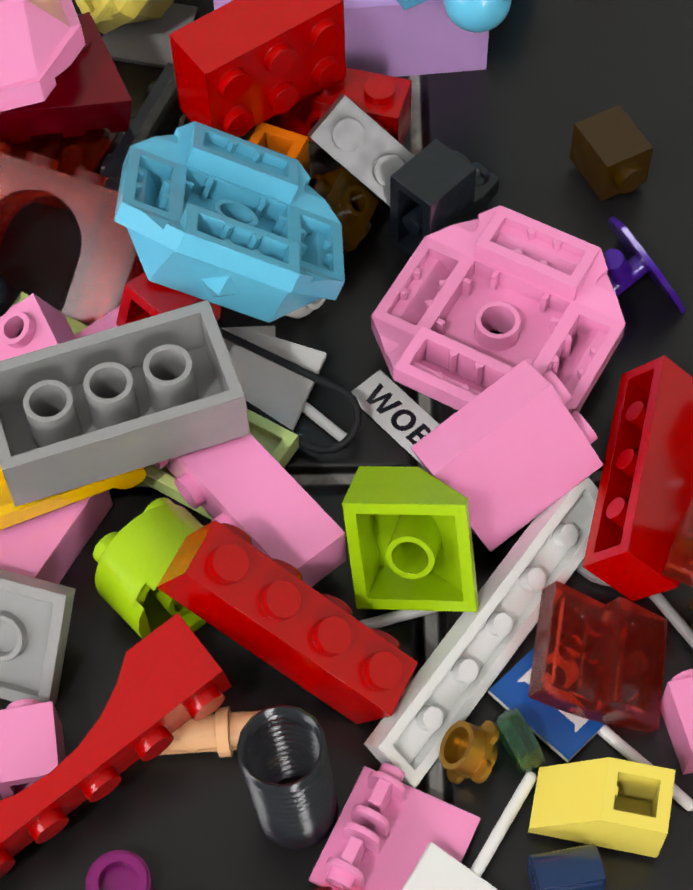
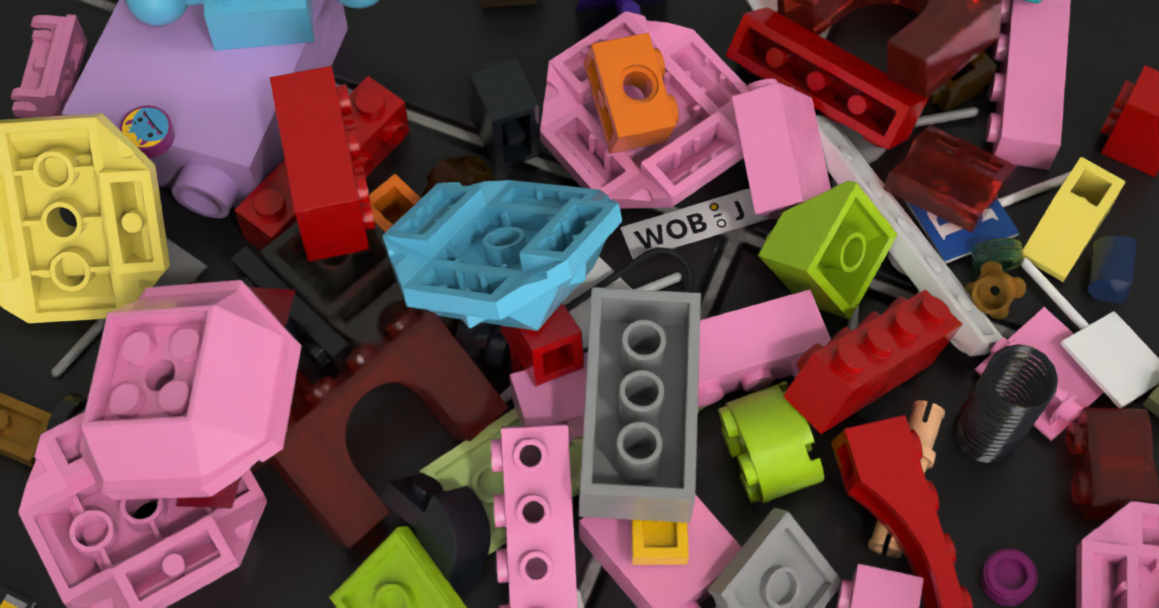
camera: 70 degrees left, 5 degrees up
(360, 145) = (426, 137): flat silver brick -> none
(500, 248) = (624, 120): none -> orange brick

